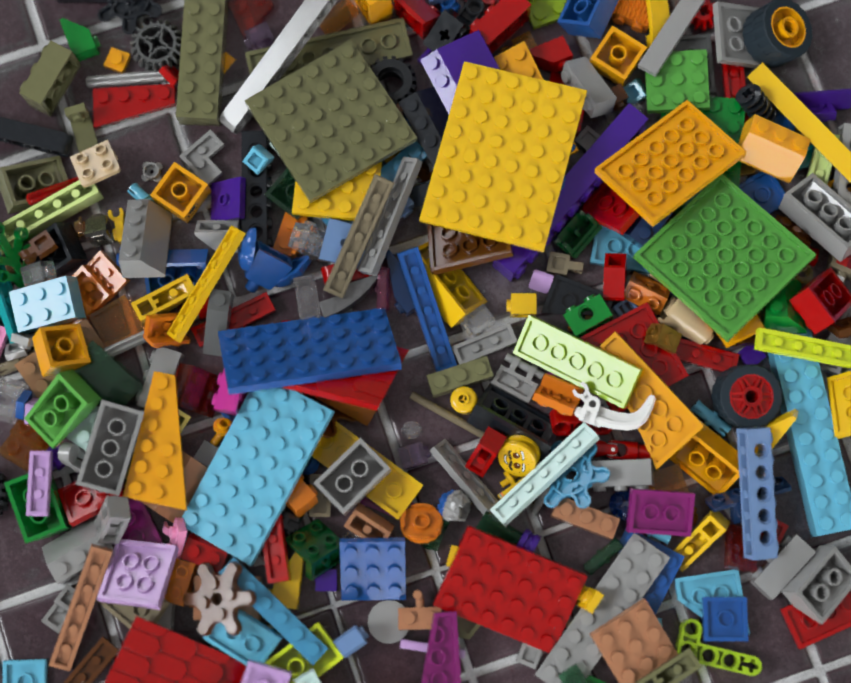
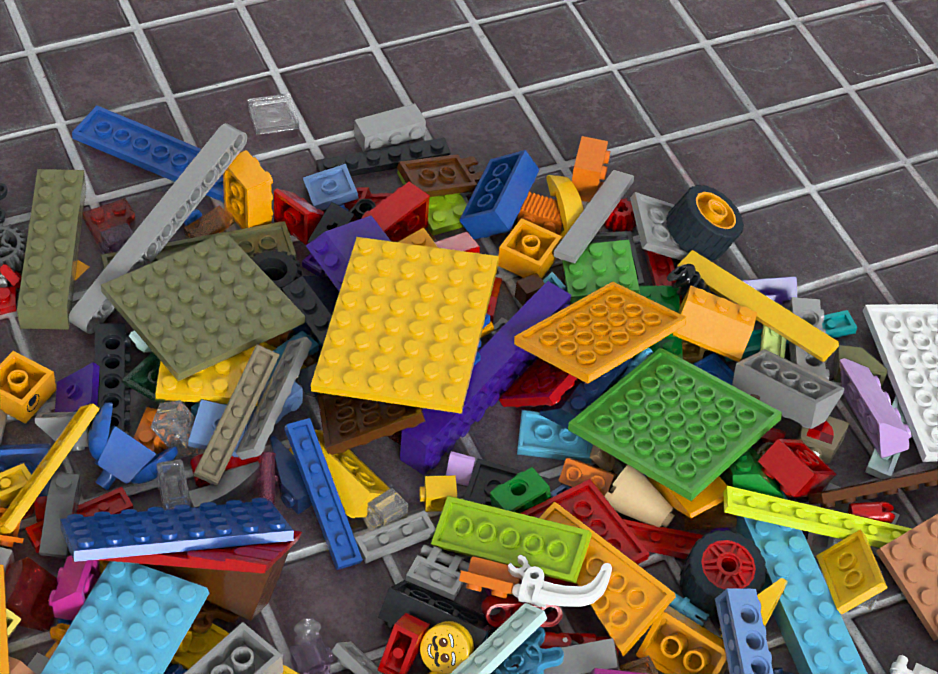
camera: 10 degrees left, 30 degrees down
(198, 157) = (48, 350): light grey plate -> none
(258, 158) = (114, 348): medium azure slope -> none
(445, 414) = (348, 614): dark tan bar -> none
(465, 374) = (366, 570): olive brick -> none
(467, 407) = (371, 592): yellow head -> none
(560, 264) = (485, 450): dark tan plate -> none
(577, 233) = (499, 418): dark green hinge -> none
(582, 75) = (510, 280): light grey brick -> none
(614, 276) = (548, 455): red slope -> none
(663, 337) = (614, 509): pearl gold bracket -> none

